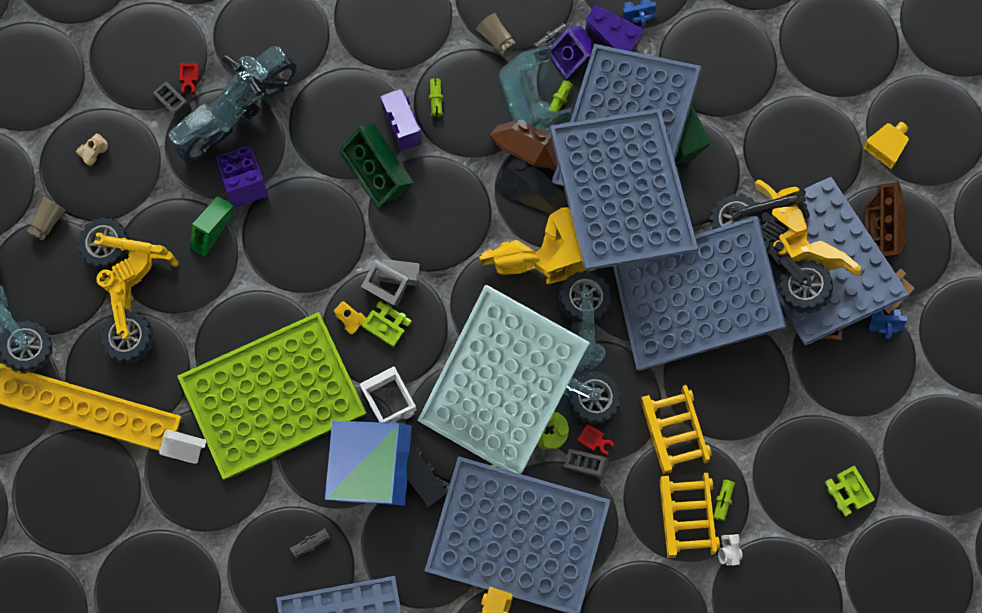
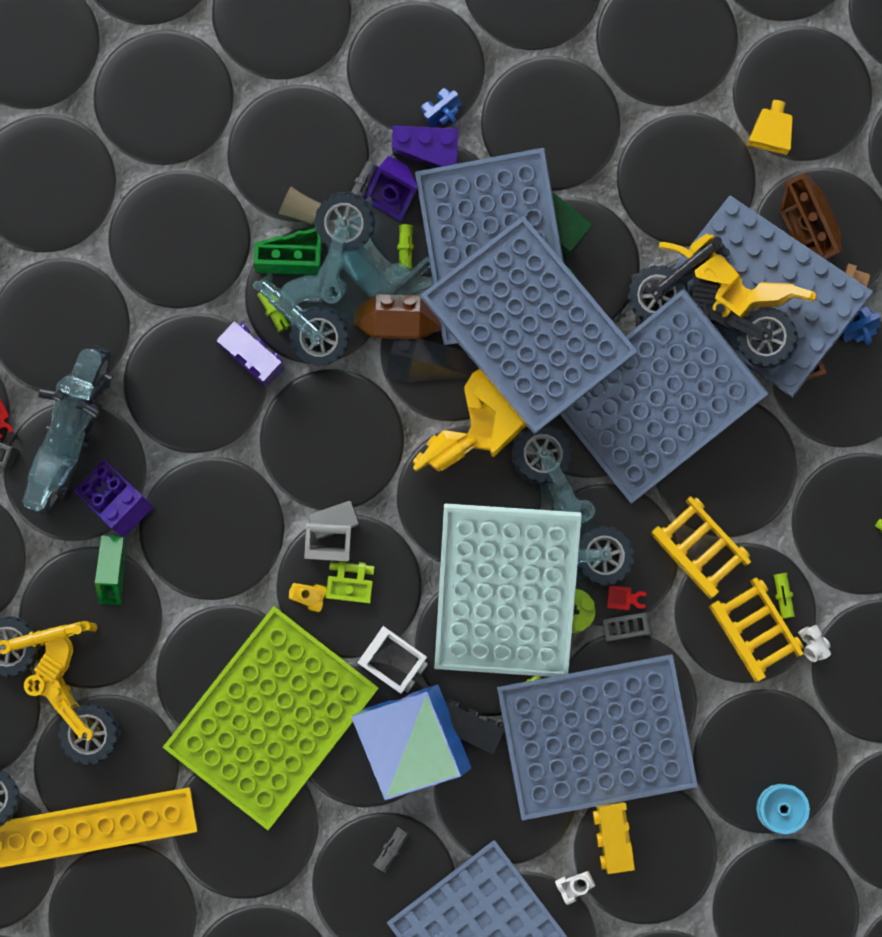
camera: 30 degrees left, 10 degrees up
(181, 446) = (207, 819): white panel -> none
(376, 165) = (249, 417): dark green slope -> none
(462, 87) = (318, 287): none -> piece
(469, 62) = (289, 254): none -> green wedge

